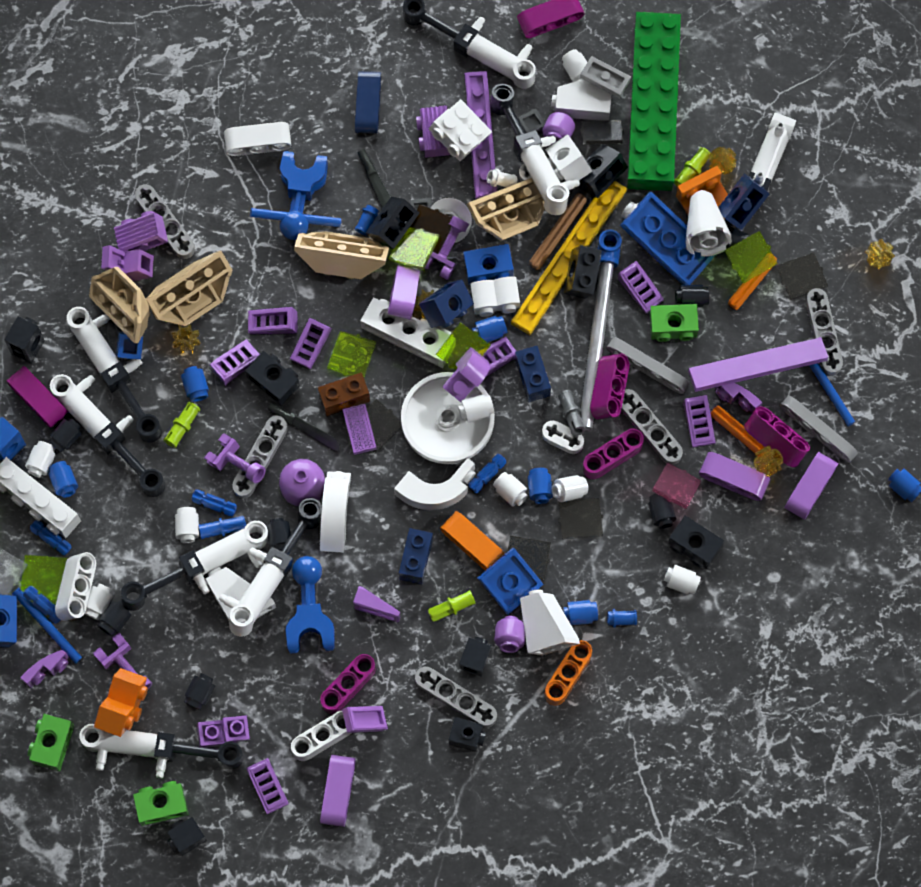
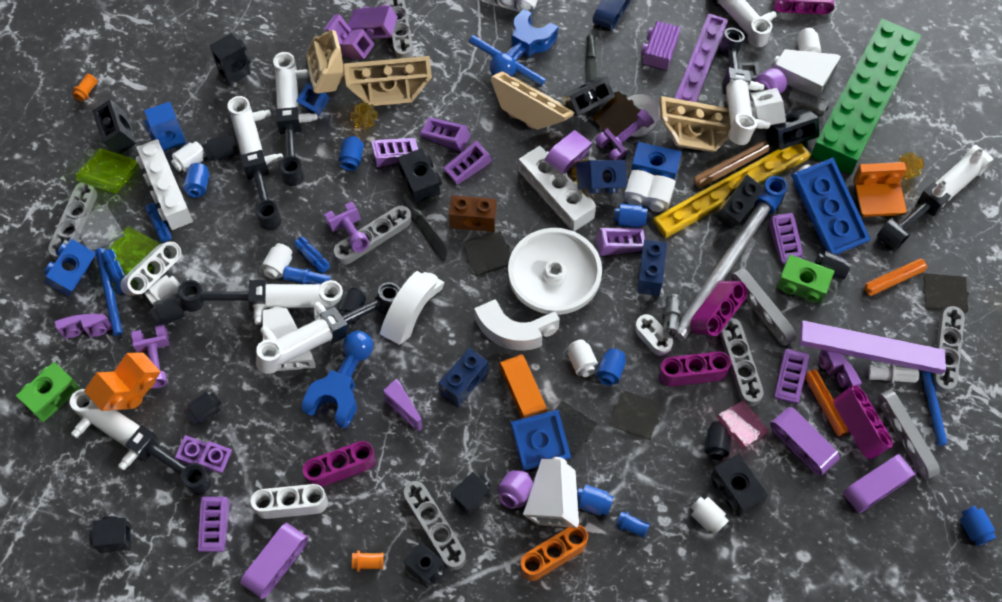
camera: 25 degrees right, 10 degrees down
(37, 396) = (216, 108): magenta beam -> none
(174, 808) = (118, 502): bright green brick -> none
(181, 425) = (321, 180): lime pin -> none
(301, 480) = (396, 266): medium lavender cylinder -> none
(351, 354) = (500, 186): clear neon green piece -> none
(359, 429) = (471, 248): medium lavender tile -> none
(364, 719) = (335, 503): medium lavender tile -> none
(368, 216) = (570, 84): blue pin -> none
(414, 248) = (596, 123): clear neon green piece -> none
(415, 753) = (367, 560): none -> orange pin
(451, 606) = (473, 438): lime axle -> none
(459, 130) = (682, 48): white plate -> none
(459, 342) = (597, 217): clear neon green piece -> none
(470, 373) = (589, 239): medium lavender brick -> none
(476, 408) = (583, 270): white brick -> none
(487, 473) = (568, 335): blue axle -> none
(499, 178) = (696, 96): white pin -> none
(569, 488) = (638, 381): white brick -> none
(605, 77) = (831, 55): light grey plate -> none
(693, 167) = (886, 157): lime pin -> none
(706, 226) = (872, 209): white cone -> none
(743, 201) = (917, 200): dark blue brick -> none
(751, 257) = (904, 252): clear neon green piece -> none
(768, 461) = (845, 439): clear yellow gear -> none
(784, 378) = (892, 373): none -> white axle

